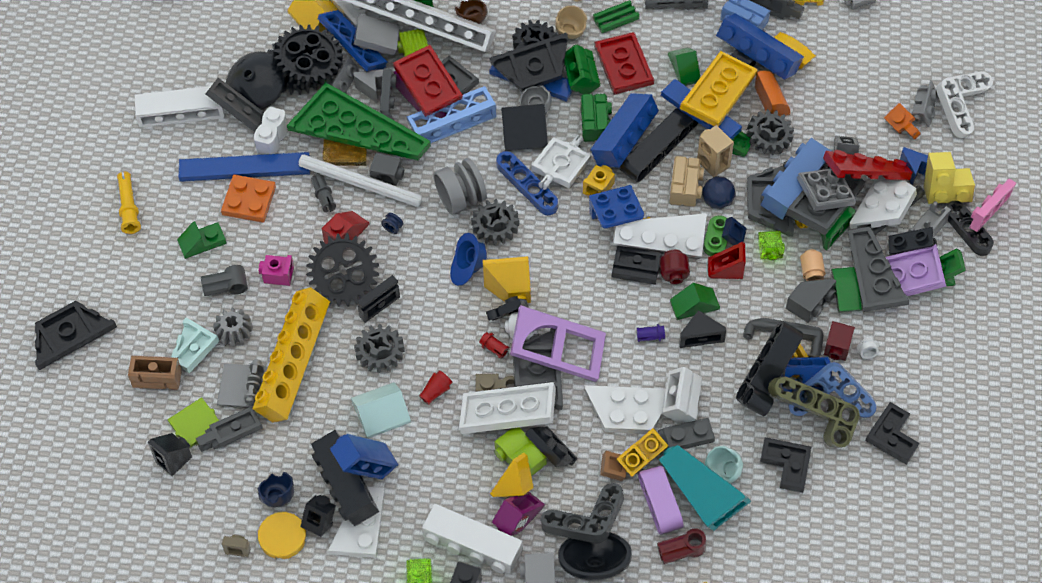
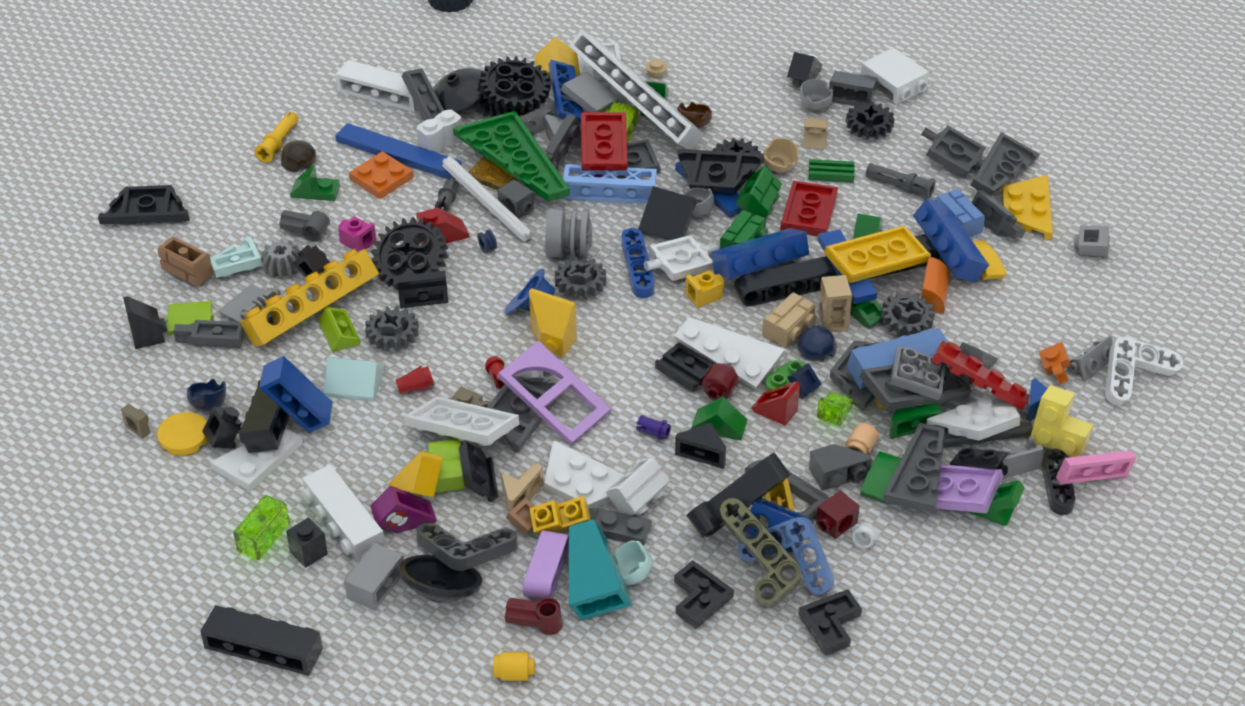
camera: 30 degrees right, 15 degrees down
(161, 214) = (297, 154): none -> dark brown hair
(268, 320) = (311, 260): none -> black brick
(331, 370) = (338, 329): none -> lime slope
(512, 305) = (526, 342): black plate -> none
(590, 448) = (527, 485): none -> tan slope
(615, 207) = (700, 306): blue bracket -> none

